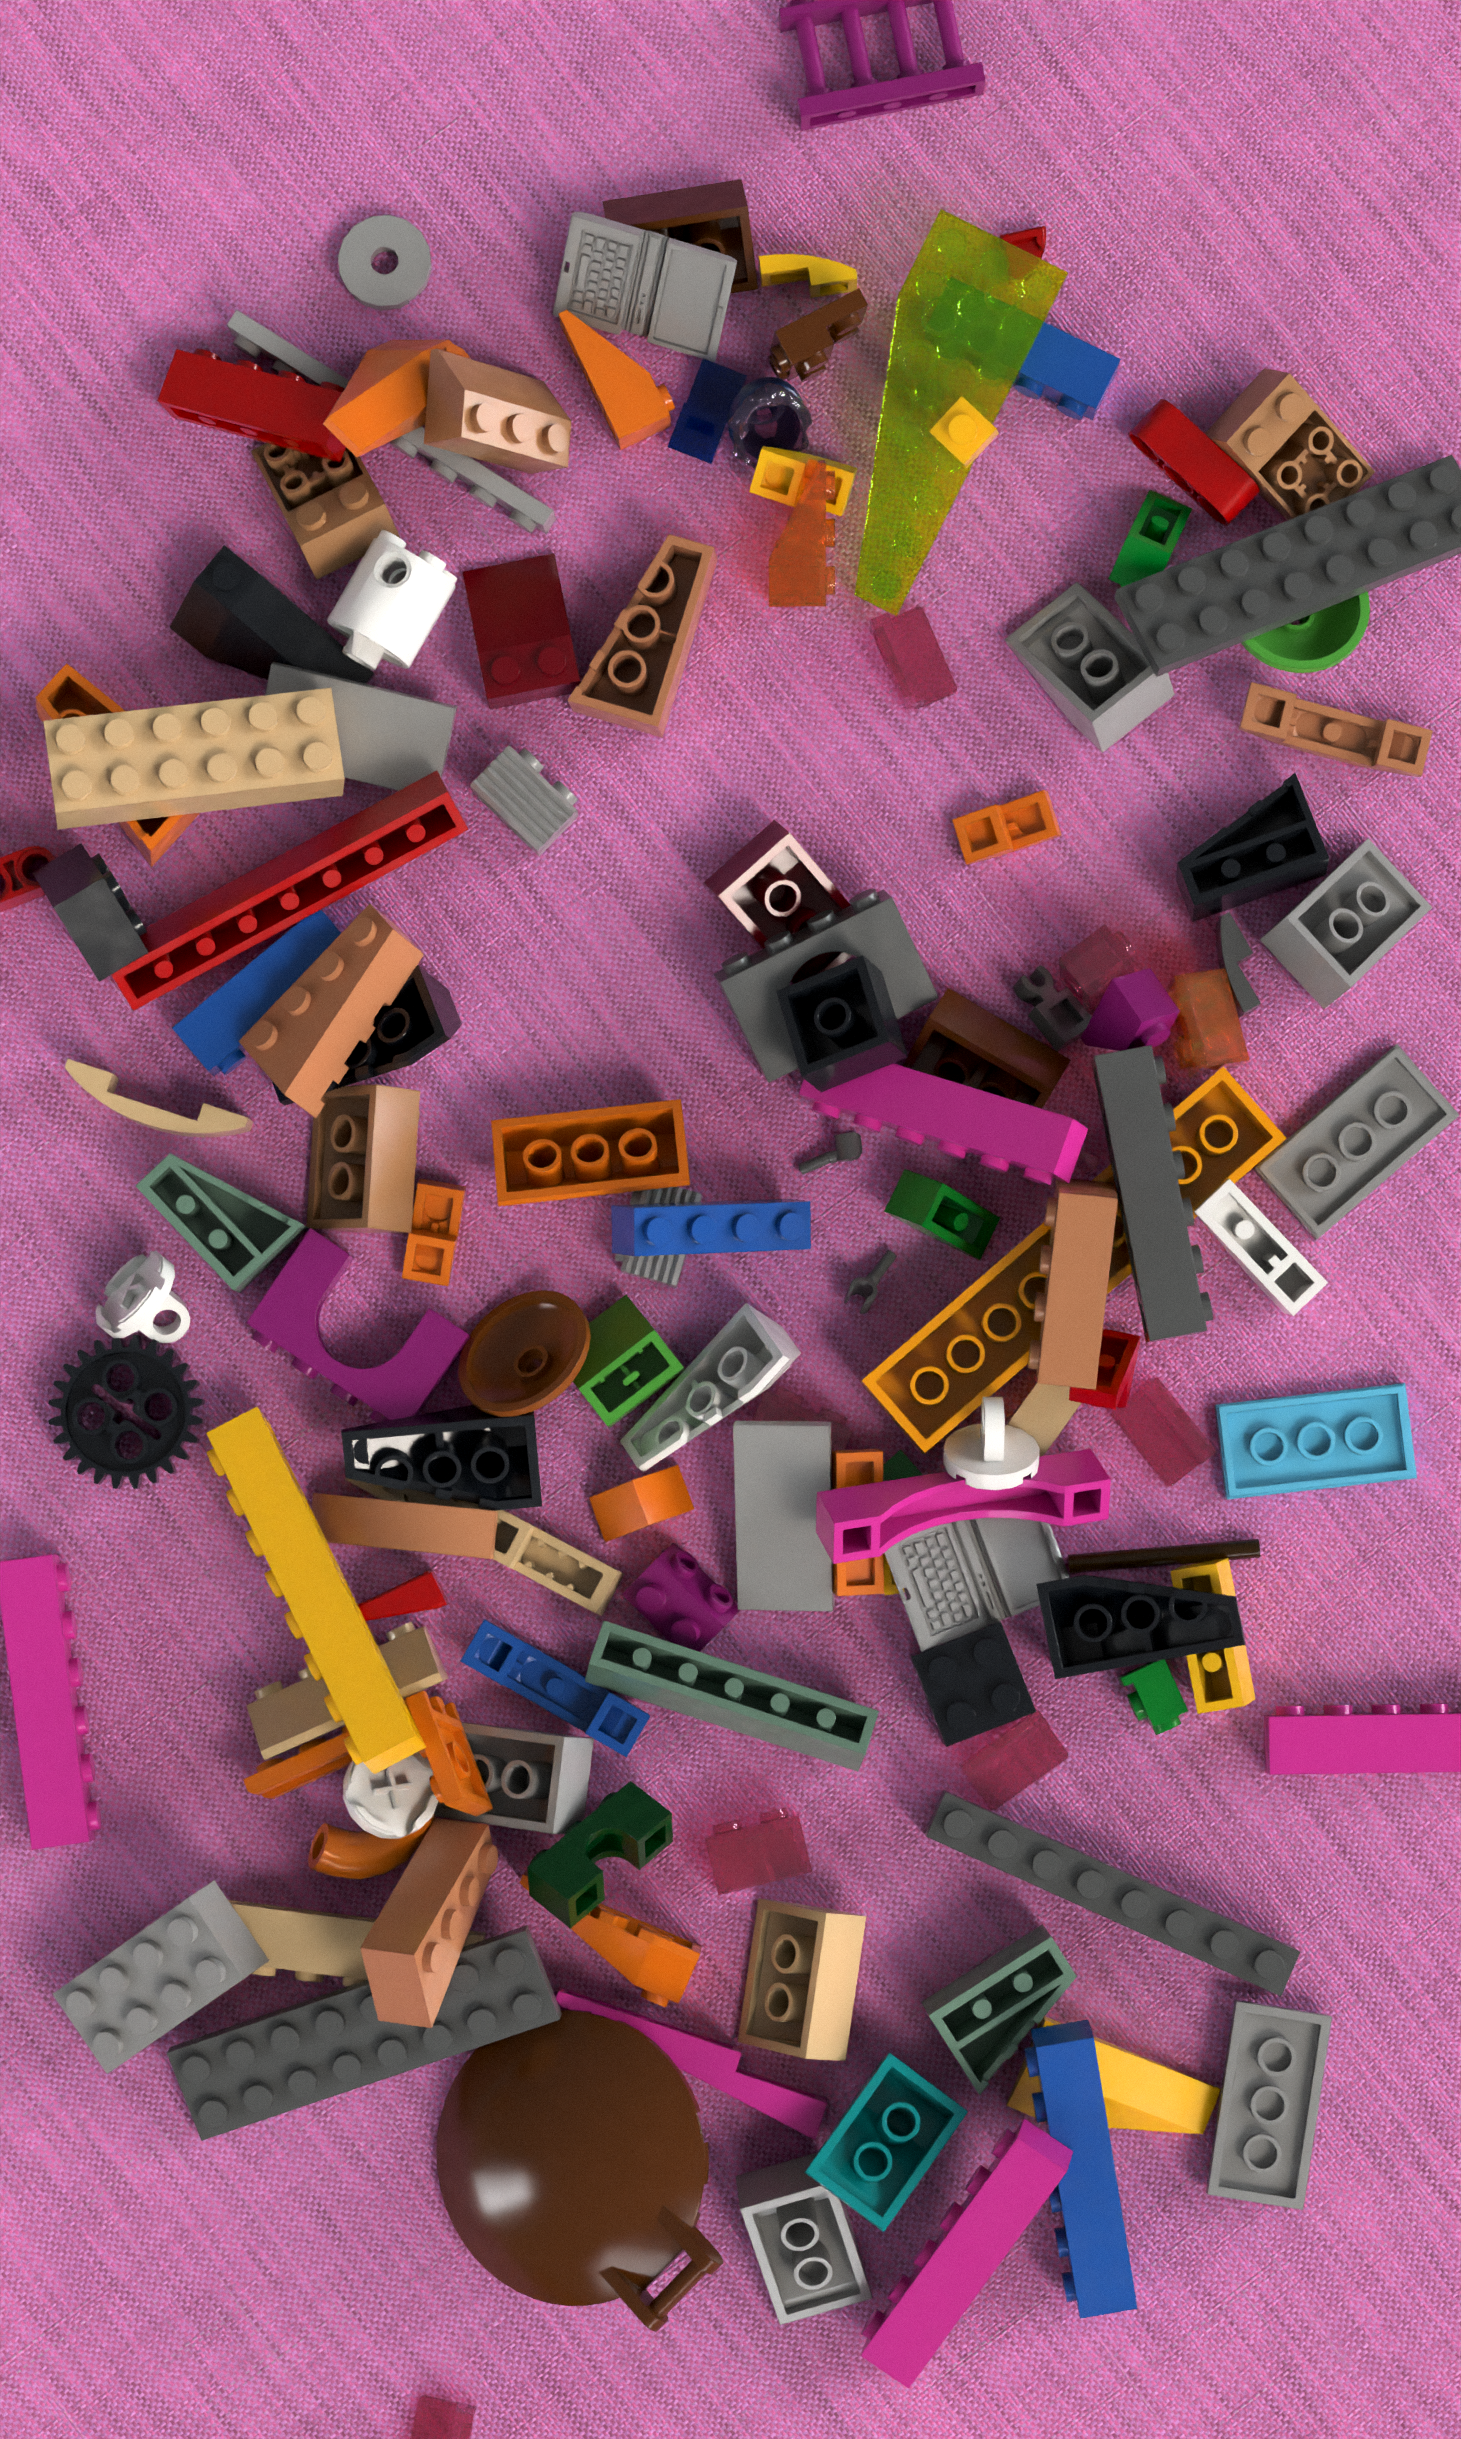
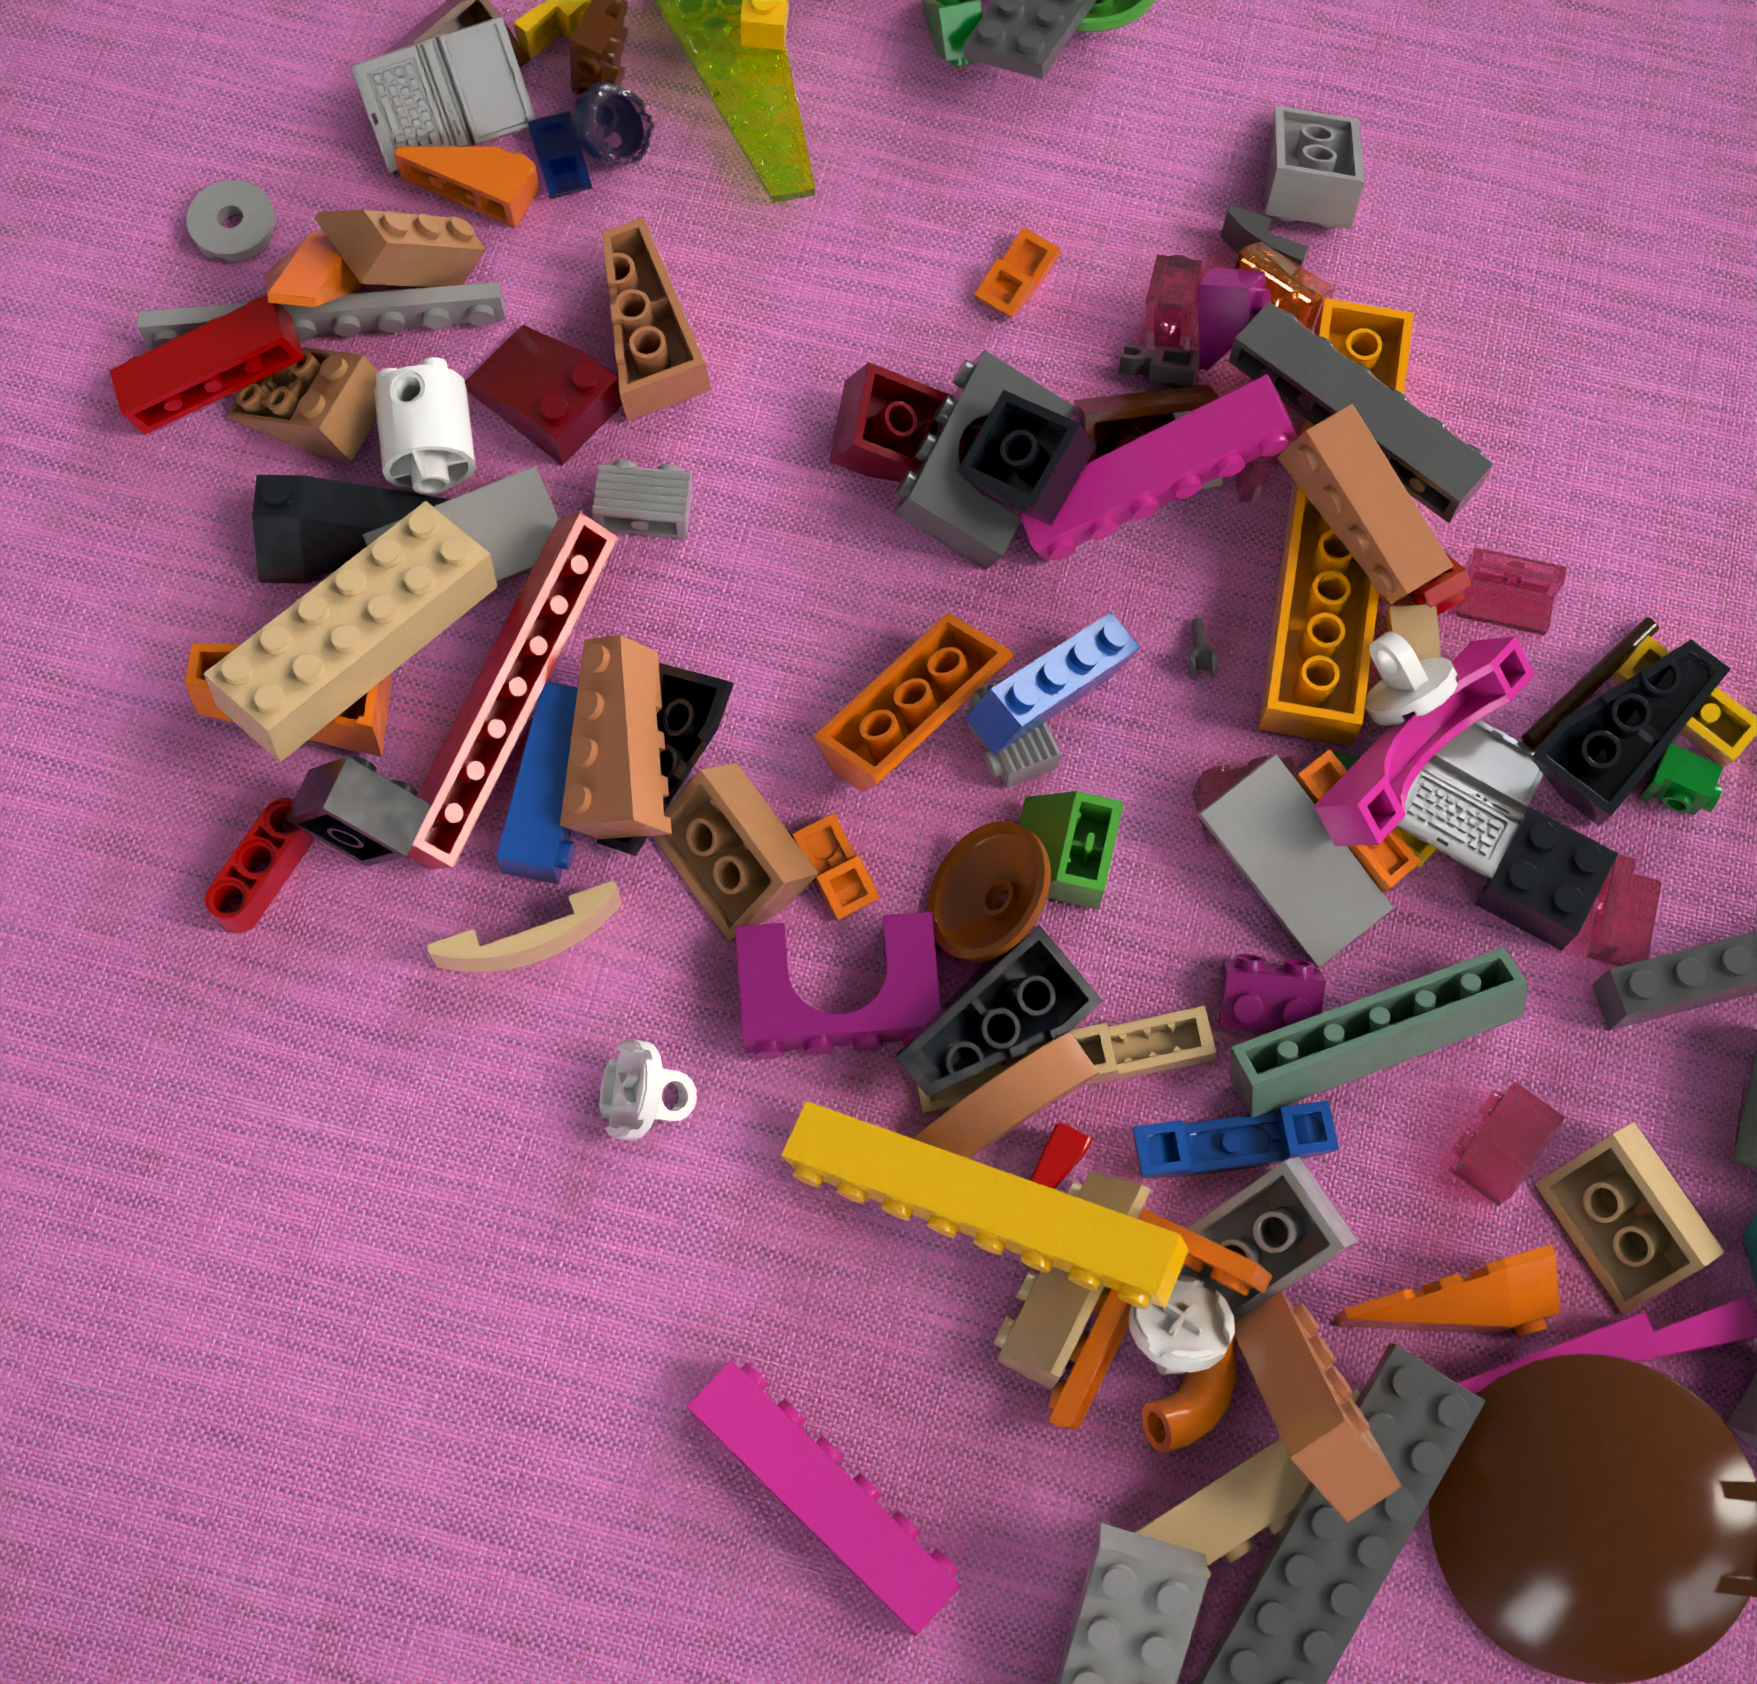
camera: 45 degrees left, 15 degrees down
(101, 1446) = (698, 1242): black gear -> none
(219, 1221) = (653, 979): sand green wedge -> none
(623, 1826) = (1387, 1272): dark green arch -> none
(641, 1503) = (1171, 948): orange slope -> none
(721, 1379) = (1157, 791): white wedge -> none
(784, 472) = (670, 147): yellow slope -> none
(799, 555) = (711, 192): clear orange slope -> none
(847, 1149) = (1099, 570): dark grey hand -> none
(913, 658) = (848, 214): clear pink panel -> none
(942, 1213) = (1209, 559): green slope -> none
(1090, 666) = (986, 126): light grey slope -> none
(1255, 855) = (1214, 159): black wedge -> none
(1260, 1248) = (1471, 406): white slope -> none
(1315, 1441) = (1619, 520): medium azure tile -> none
(1334, 732) = (1195, 57): nougat slope -> none
(1356, 1142) = (1454, 302): light grey tile -> none

